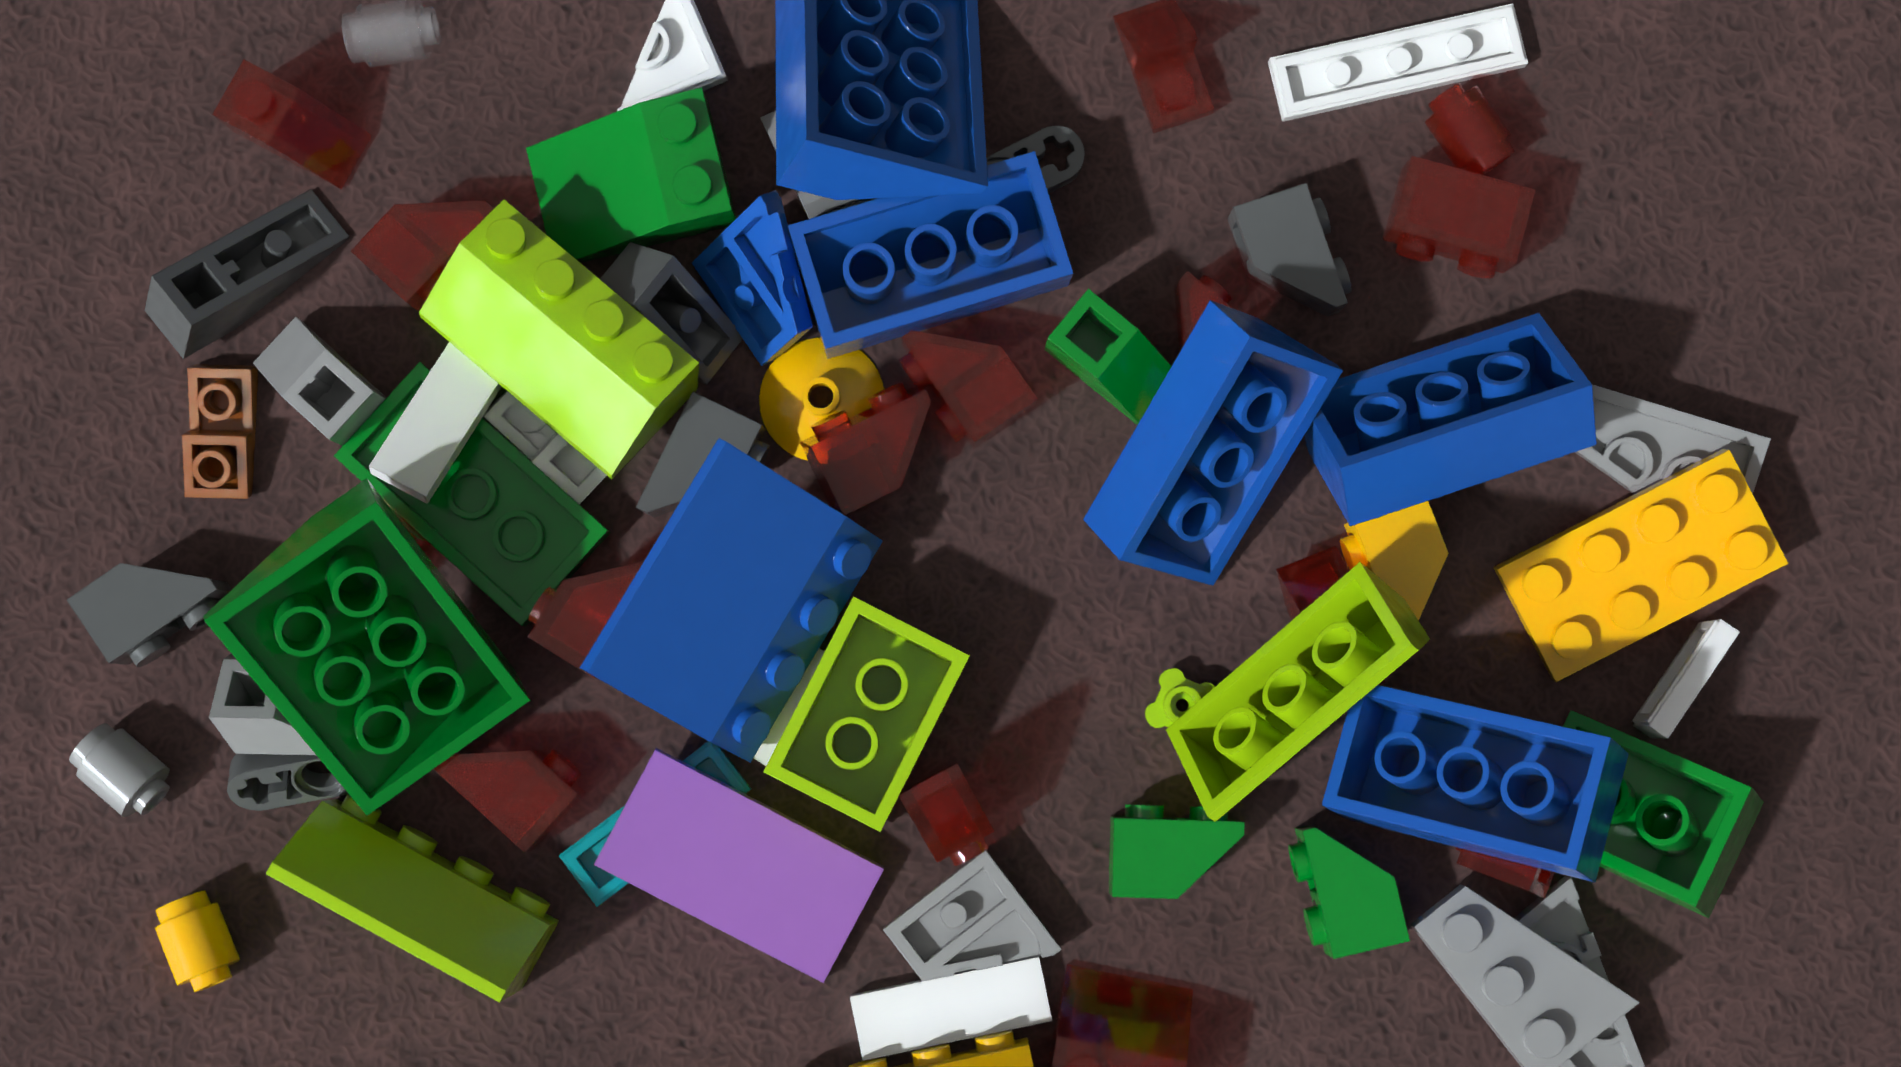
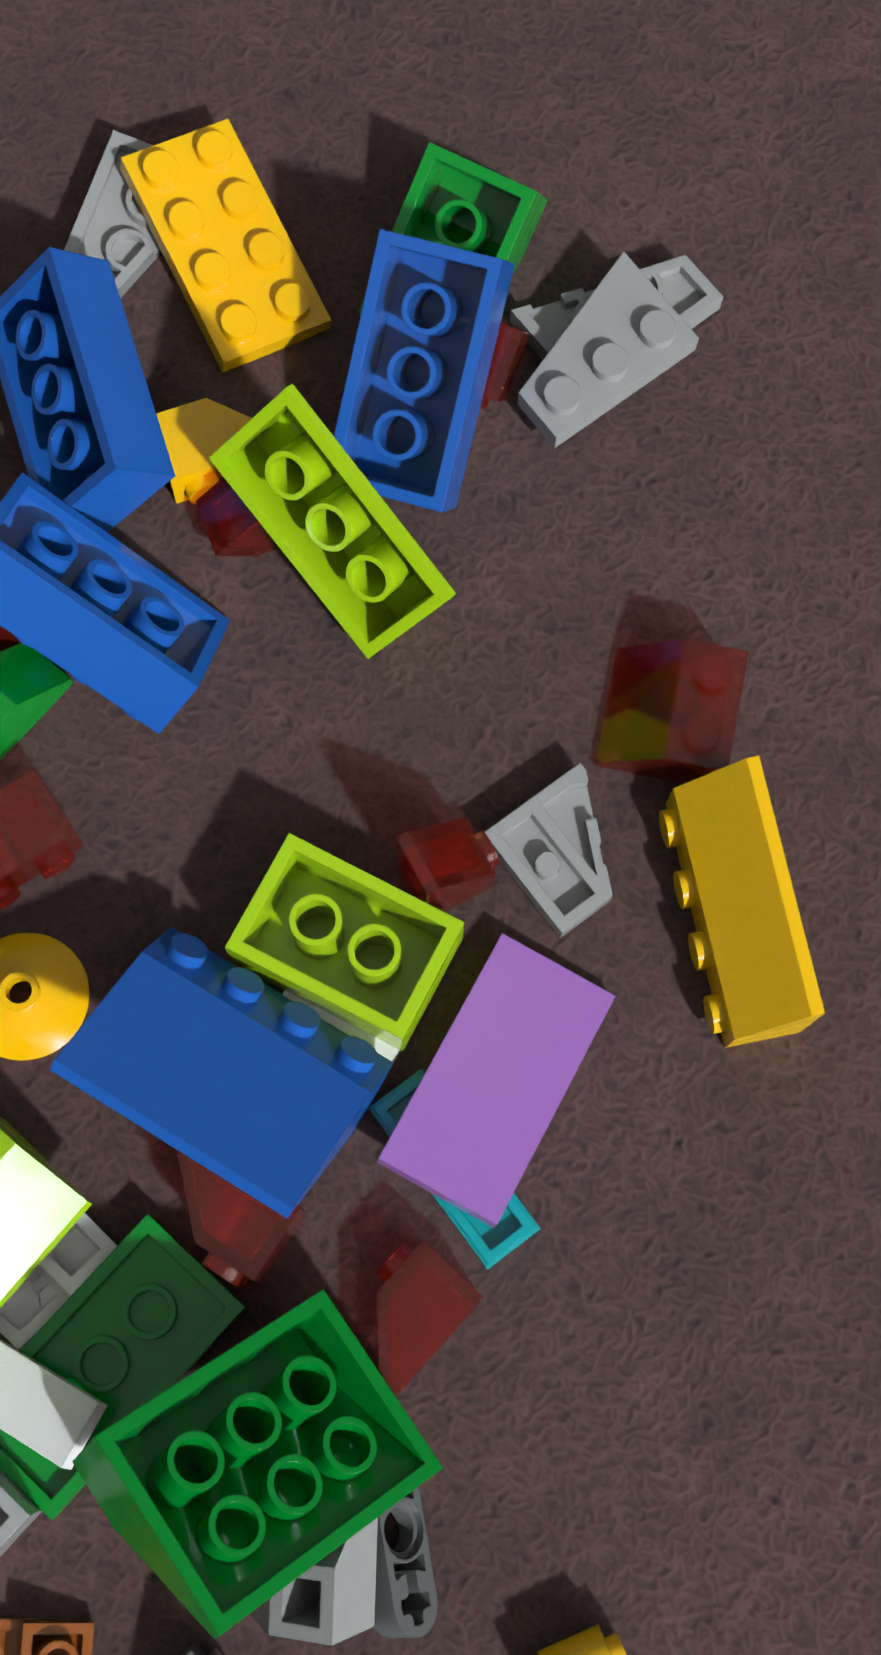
camera: 95 degrees left, 10 degrees down
(417, 897) = (529, 1419): lime slope -> none
(690, 445) = (72, 1118): dark grey slope -> none
(869, 452) = (78, 939): clear red slope -> none
(950, 1008) = (639, 875): white tile -> none
(1165, 855) = (489, 664): green slope -> none
(1174, 687) = (328, 657): lime plate -> none
(1352, 898) = (527, 501): green slope -> none
(1684, 678) = (329, 209): white tile -> none

